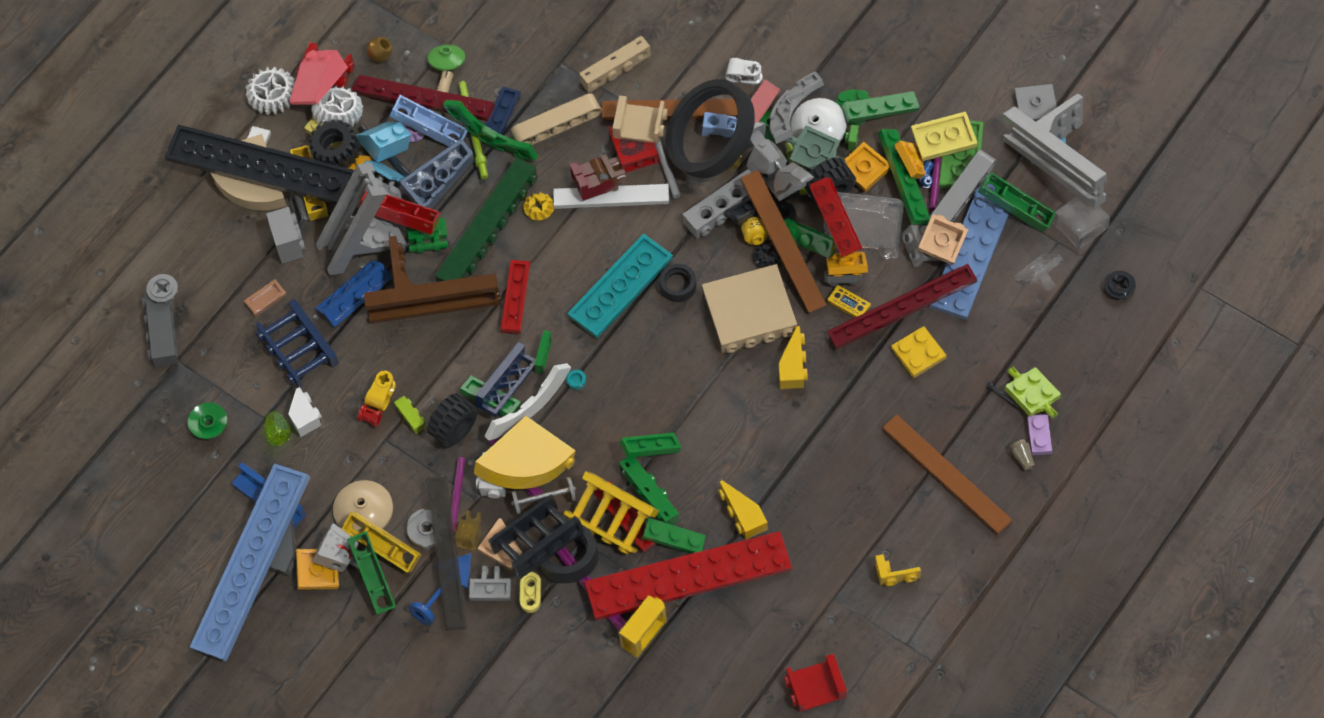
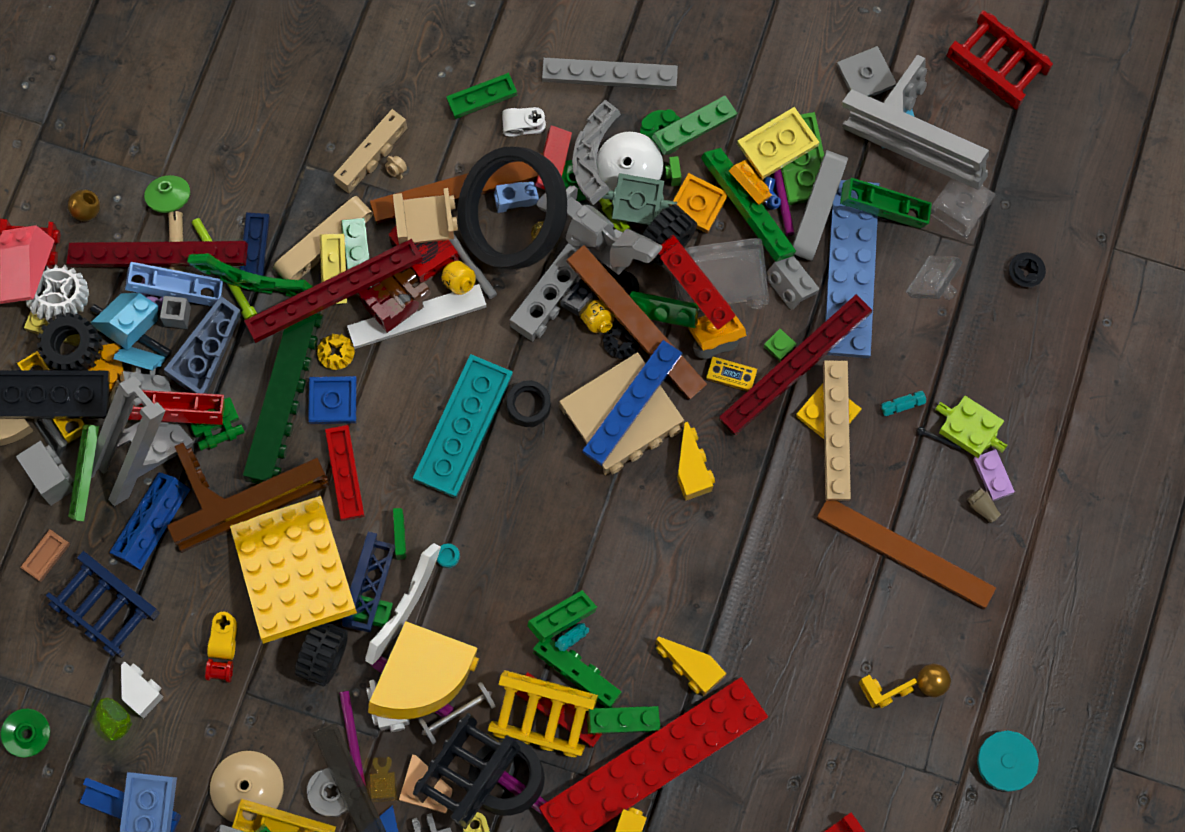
camera: 25 degrees left, 10 degrees up
(313, 239) = (83, 472): none -> bright green tile
(410, 414) = (266, 655): lime piece -> none
(423, 144) = (175, 312): none -> light grey brick
(450, 352) = (292, 569): none -> yellow plate
(524, 241) = (332, 400): none -> blue tile
(550, 156) = (333, 290): none -> dark red plate
(556, 142) = (332, 256): none -> light yellow plate
(578, 135) = (355, 242): none -> plate
(631, 80) = (395, 166): none -> tan plate
(653, 174) = (458, 277): none -> yellow head
(653, 463) = (572, 637): none -> teal axle
(717, 44) = (481, 95): none -> green plate
(759, 299) = (632, 402): none -> blue plate
(826, 53) = (609, 73): none -> light grey plate
(895, 289) = (780, 345): none -> bright green plate
(918, 364) = (836, 430): none -> tan plate
(935, 574) = (934, 680): none -> pearl gold piece
(943, 239) = (818, 271): light nougat plate -> none
(977, 654) = (1007, 761): none -> teal wheel
(982, 360) = (903, 403): none -> teal axle
(1142, 133) = (996, 80): none -> red fence

